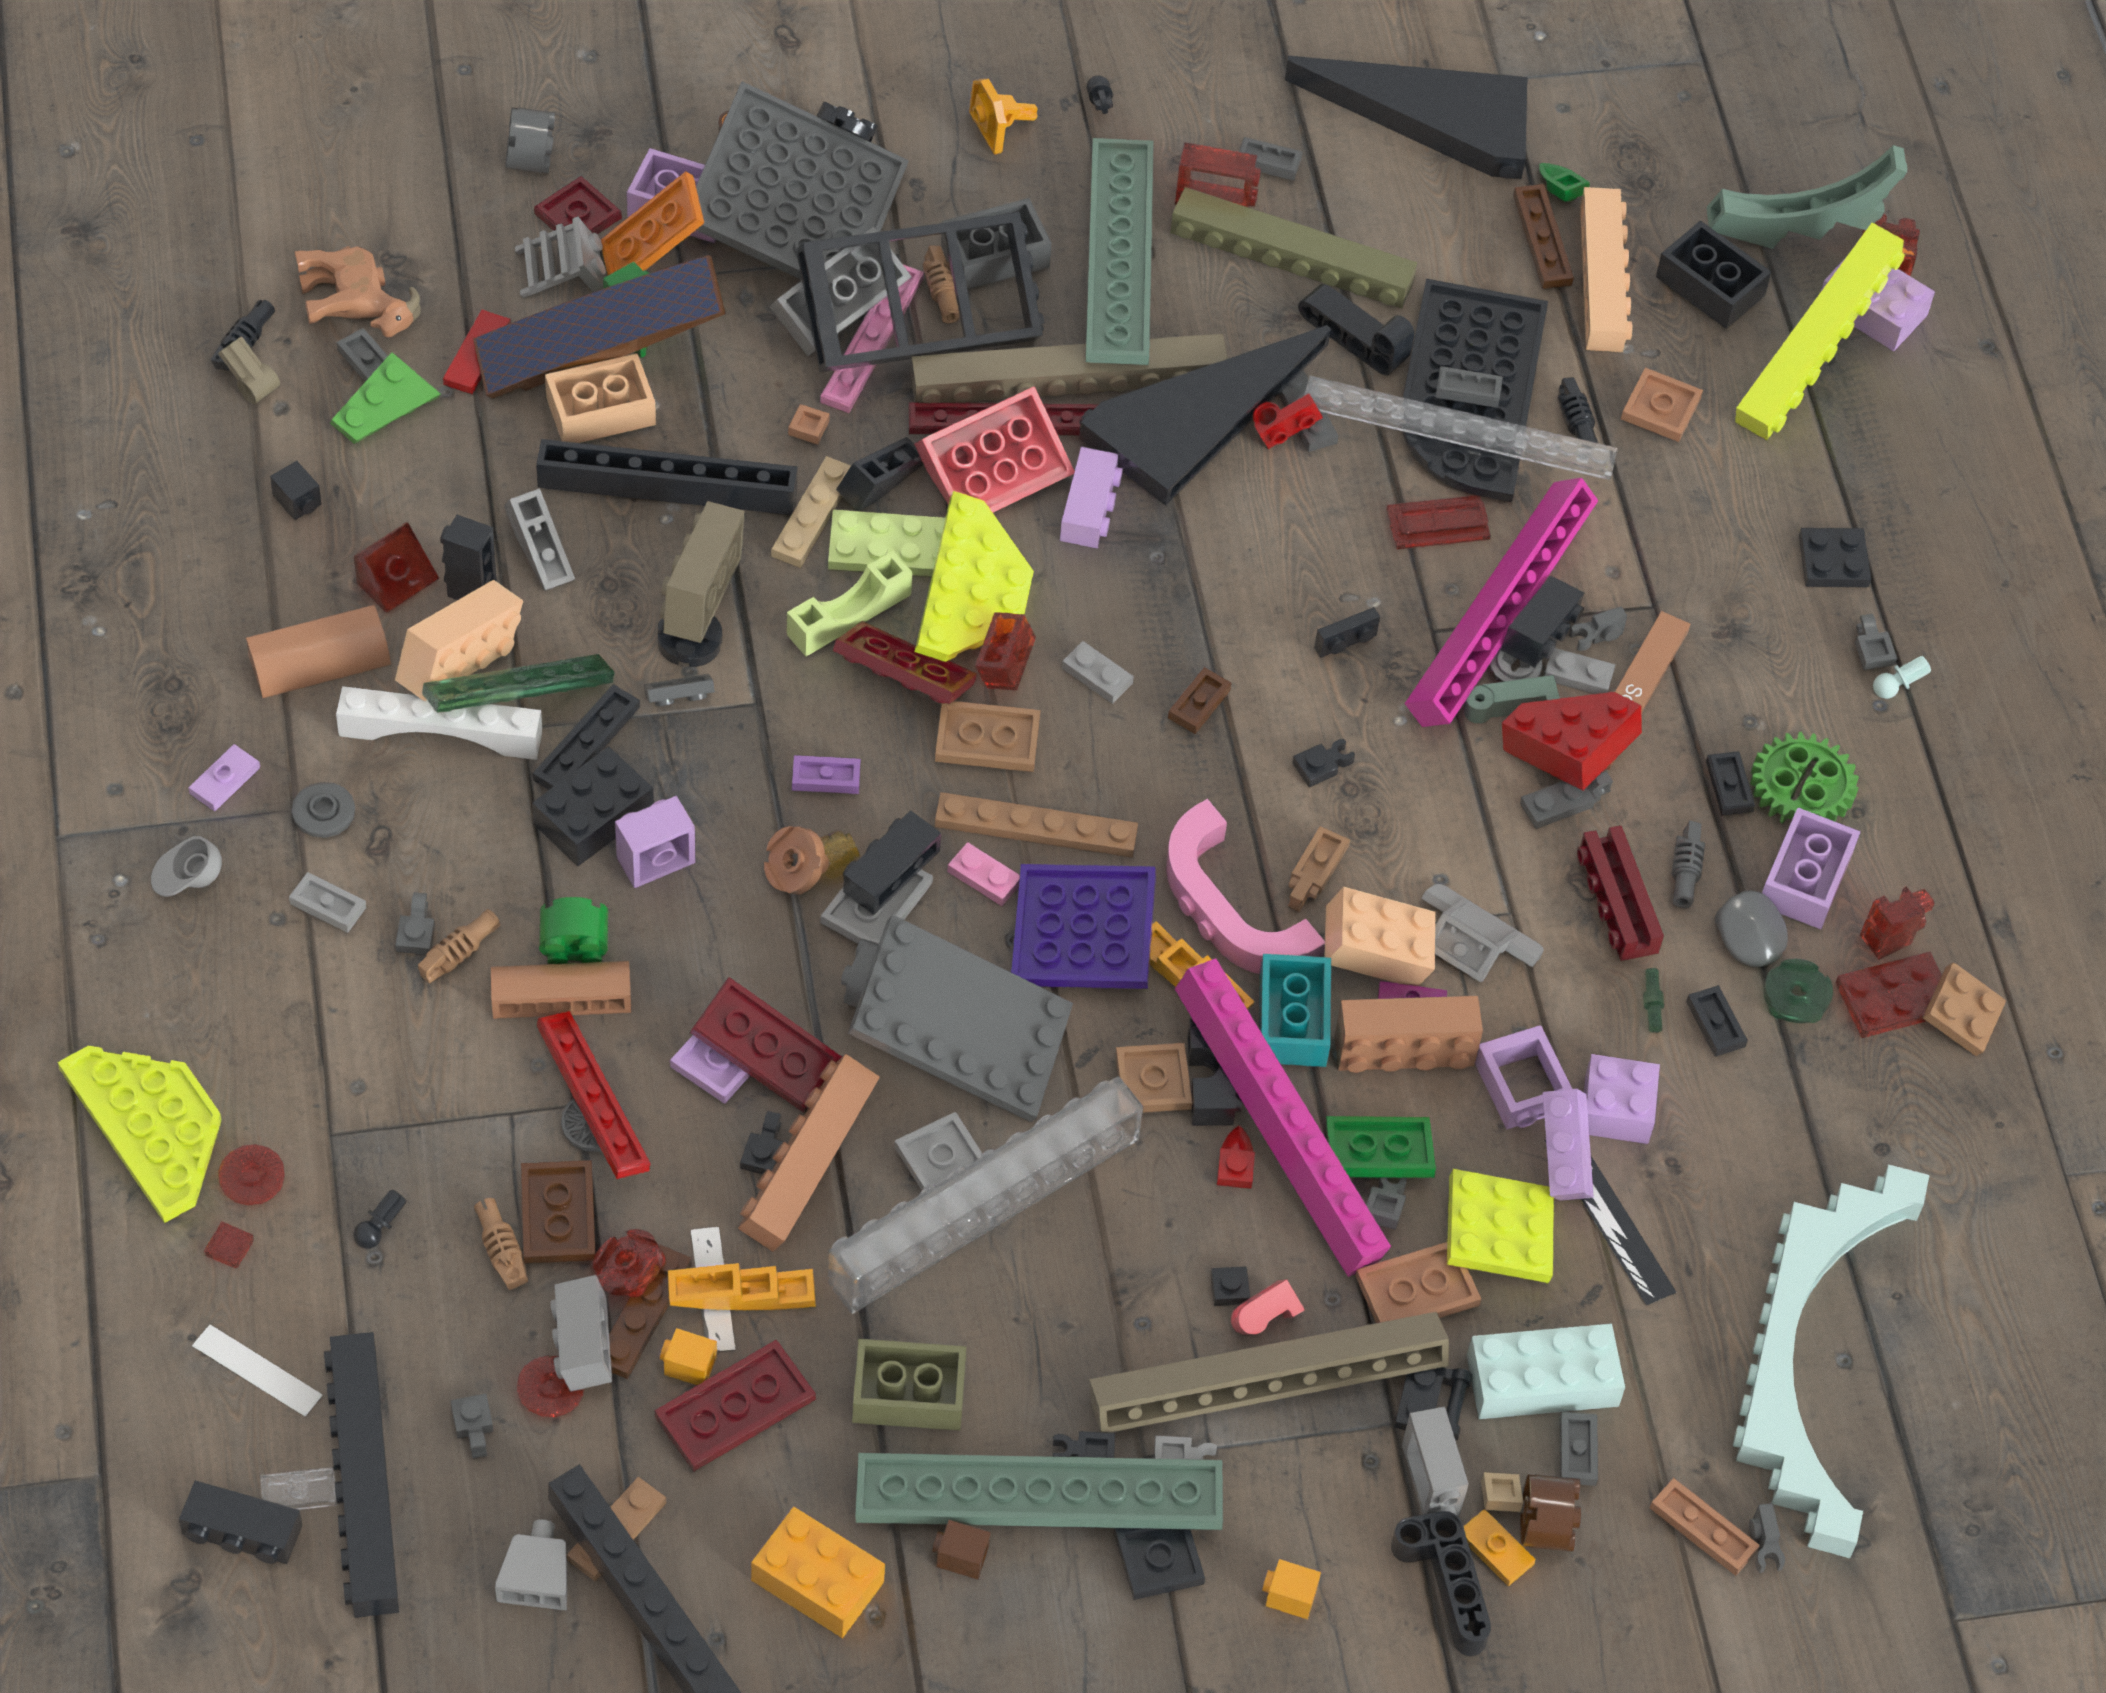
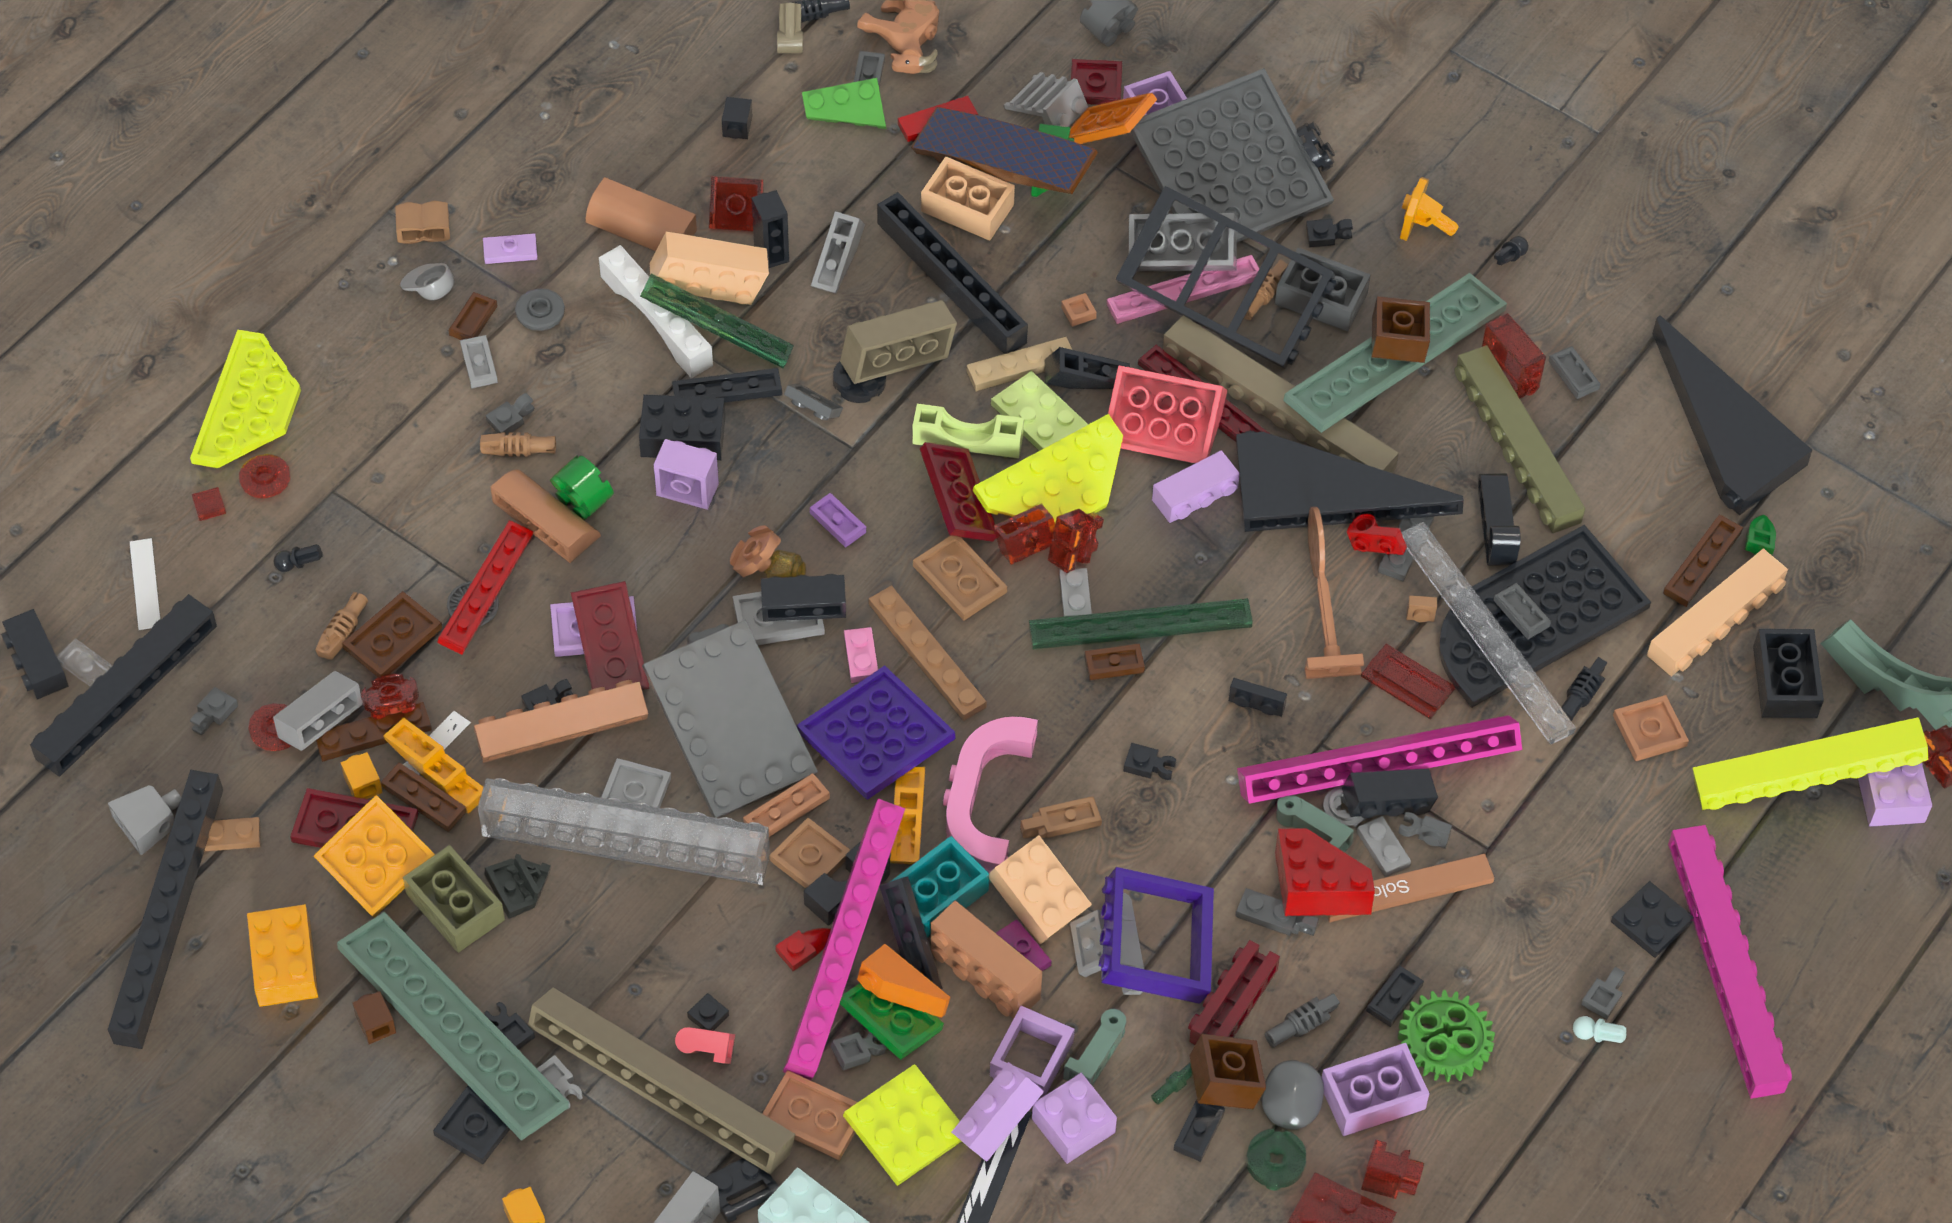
camera: 50 degrees right, 0 degrees up
(112, 818) = (422, 222): none -> medium nougat brick
(267, 868) = (473, 317): none -> reddish brown tile
(765, 1324) = (423, 796): none -> reddish brown plate
(797, 1411) = (373, 855): none -> light orange plate
(931, 197) = (1324, 233): none -> black plate
(937, 1320) = (517, 883): none -> pearl dark grey slope
(1055, 622) = (1074, 539): none -> clear red hips
(1085, 1052) = (790, 805): none -> nougat plate
(1117, 223) = (1400, 329): none -> reddish brown brick
(1180, 652) = (1140, 623): none -> clear green plate
(1262, 470) = (1333, 663): none -> nougat piece
(1331, 1066) = (909, 927): none -> black plate
(1360, 1113) = (899, 982): none -> orange slope
(1385, 451) = (1421, 608): none -> medium nougat plate
(1535, 864) = (1148, 981): none -> dark purple window
(1570, 1027) = (1099, 1049): none -> sand green leg
(1693, 952) = (1227, 1071): none -> reddish brown brick
(1927, 540) = (1729, 962): none -> dark pink brick

